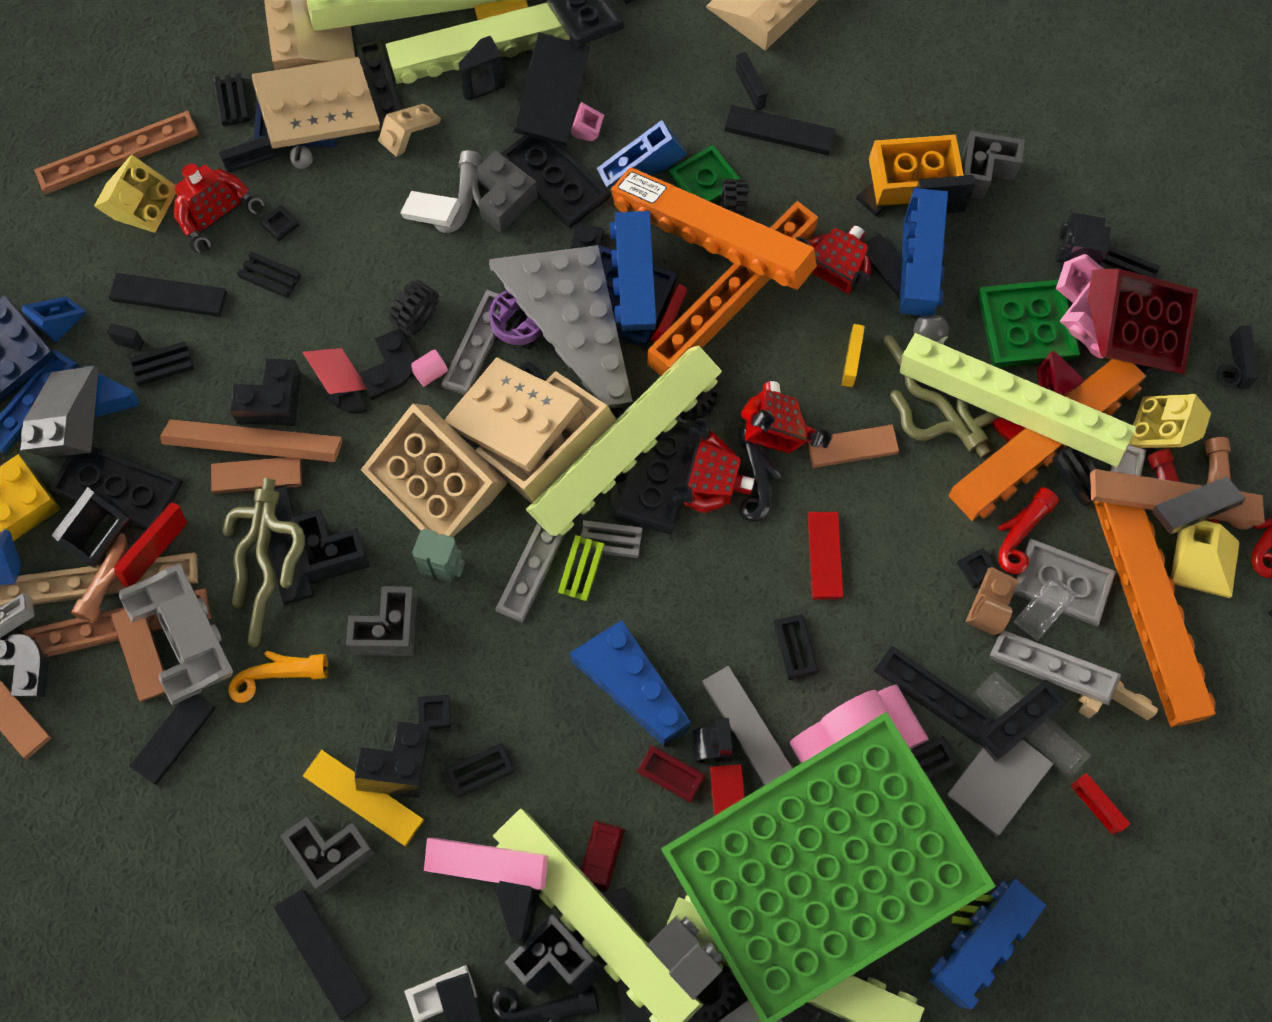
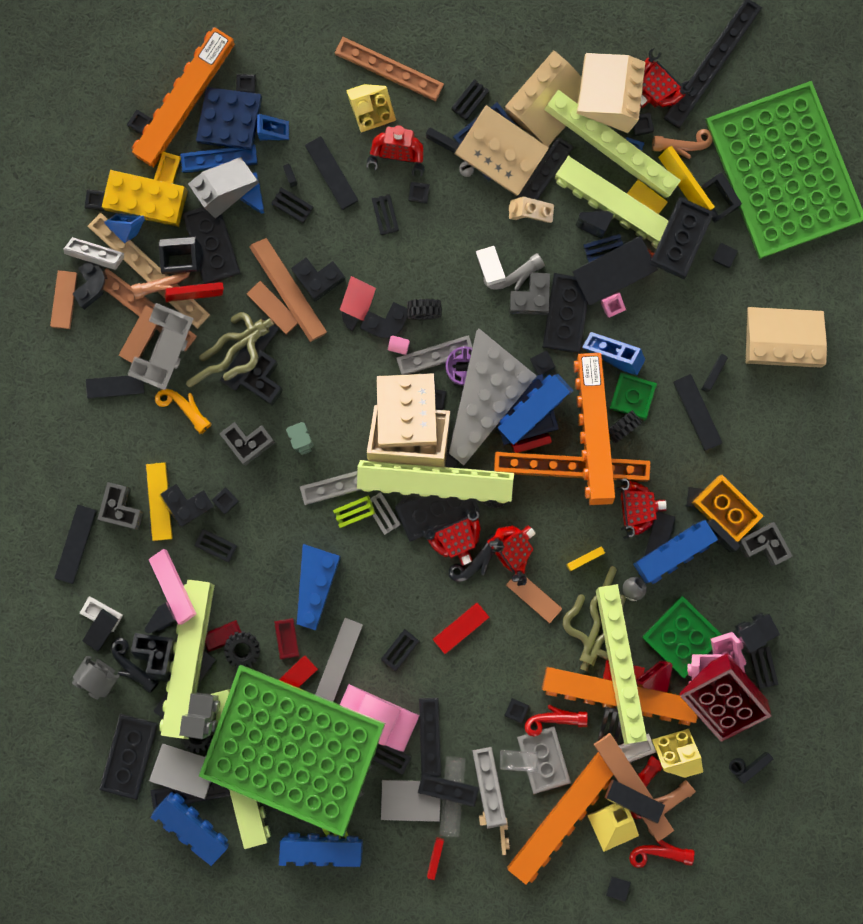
camera: 50 degrees right, 15 degrees up
(433, 473) = (344, 396): tan slope -> none
(507, 88) = (588, 253): none -> dark blue tile
(622, 846) = (245, 638): none -> black tyre
(713, 742) = (316, 648): black plate -> none
(990, 607) = (498, 732): medium nougat plate -> none

